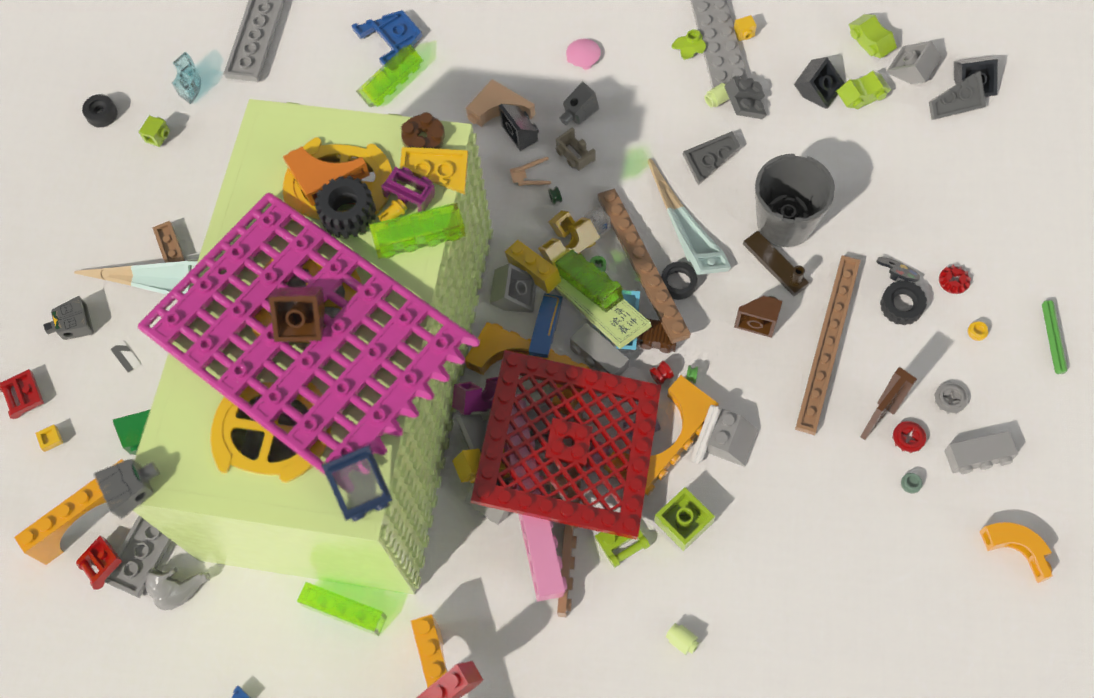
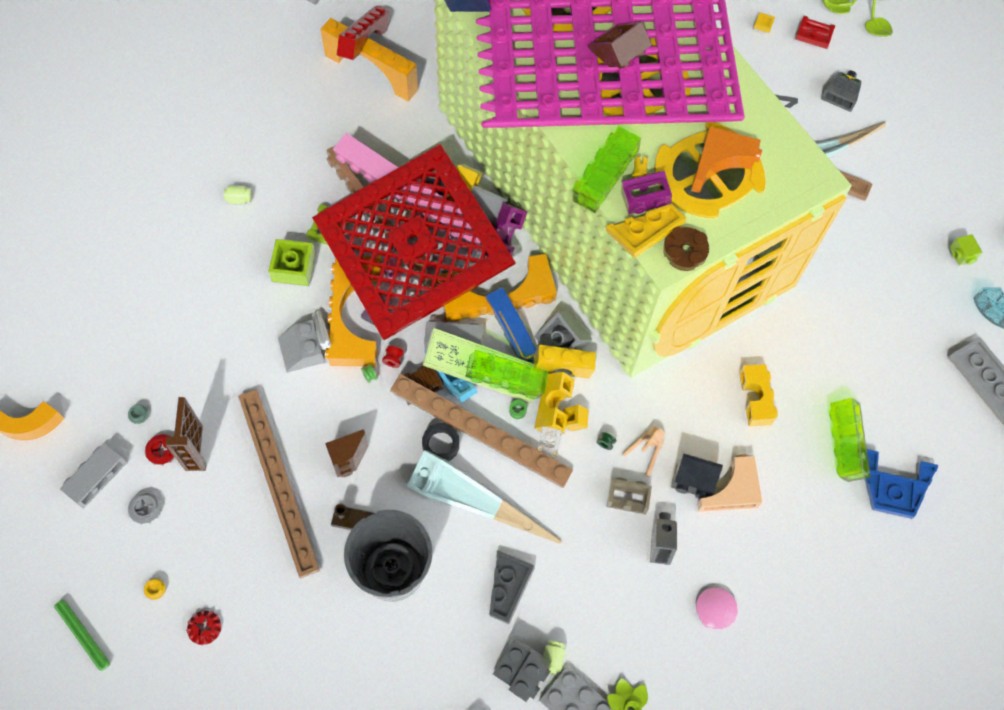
camera: 130 degrees right, 0 degrees up
(342, 192) = (678, 129): black tyre -> none
(898, 269) = (252, 594): piece -> none
(909, 289) = (226, 553): black tyre -> none

